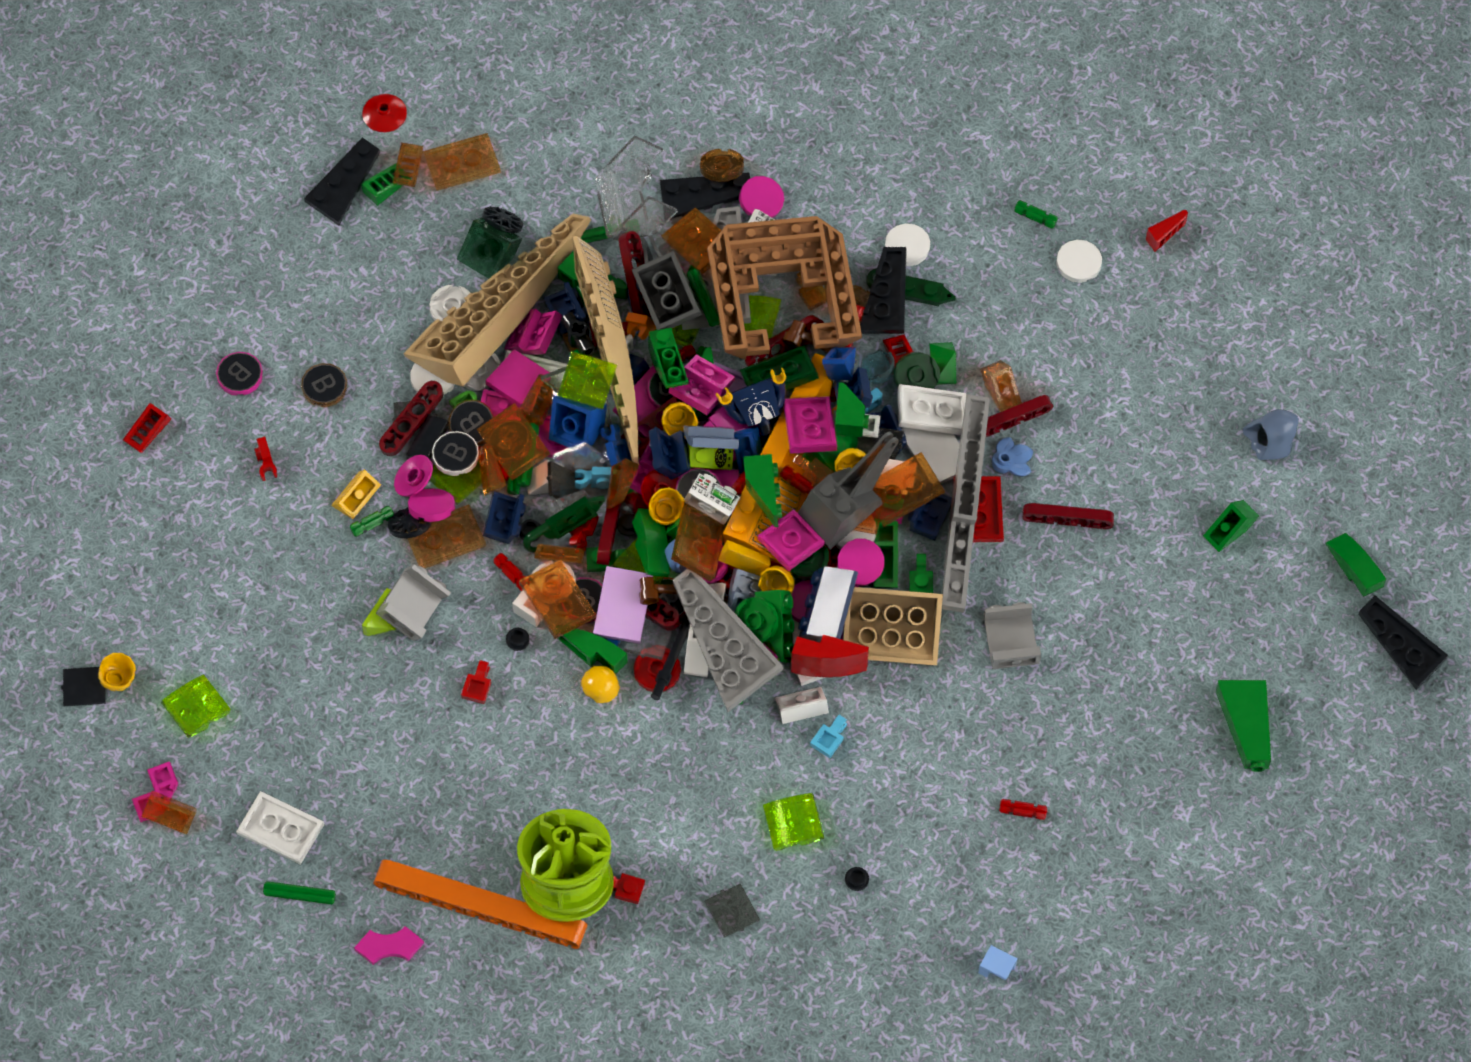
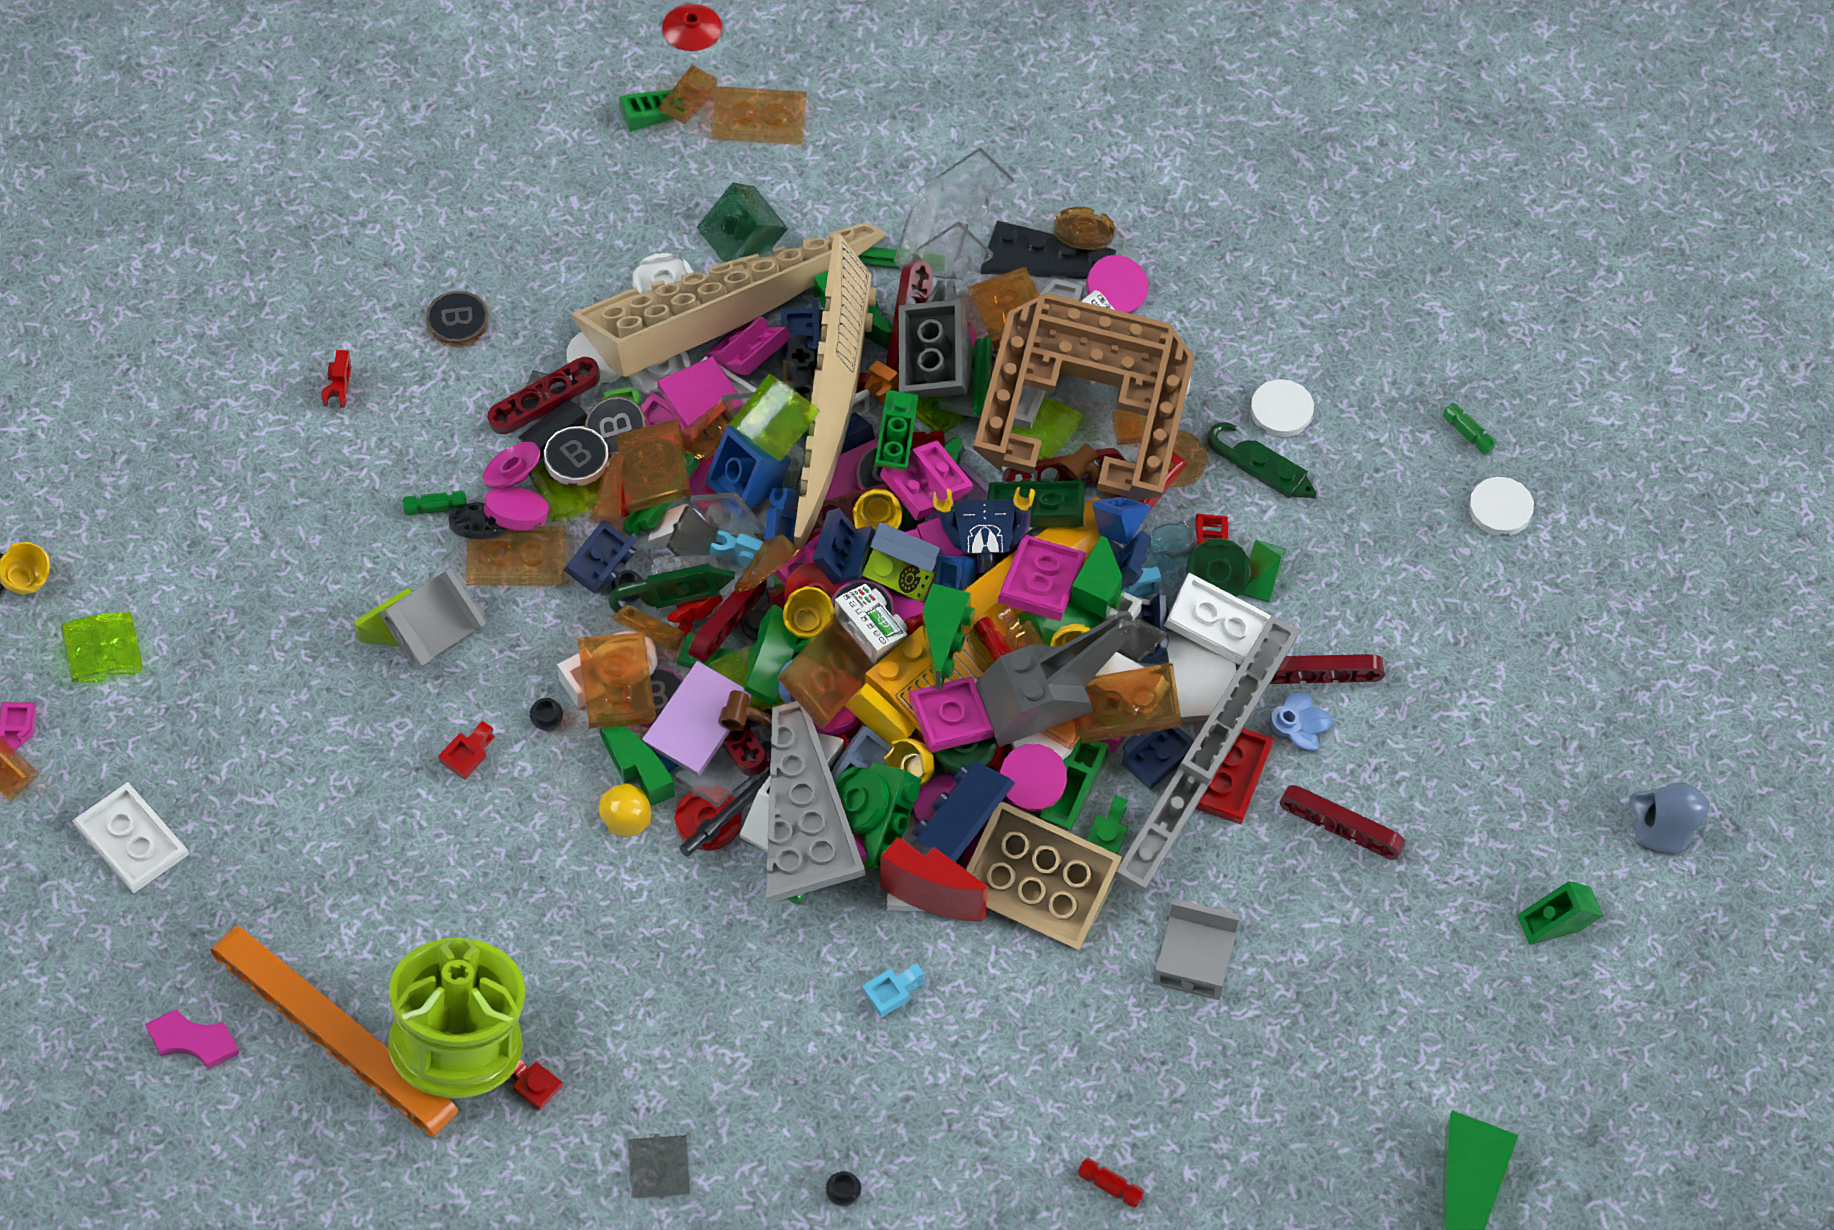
camera: 20 degrees right, 5 degrees down
(150, 410) = (218, 278): red slope -> none
(239, 373) = (360, 268): black tile -> none
(299, 892) = (112, 928): green axle -> none
(338, 188) = (592, 93): black wing -> none
(356, 494) = (432, 464): yellow slope -> none
(502, 219) = (774, 198): black wheel -> none
(509, 569) = (576, 619): red axle -> none
(793, 821) = (793, 1080): clear neon green slope -> none
(802, 705) = (876, 935): white slope -> none
(886, 301) = (1225, 459): black wing -> none
(1001, 385) = (1325, 623): clear orange slope -> none
(1161, 232) = (1634, 506): red slope -> none
(1356, 564) = (1713, 1029): green slope -> none
(1404, 643) = (1739, 1166): black wing -> none

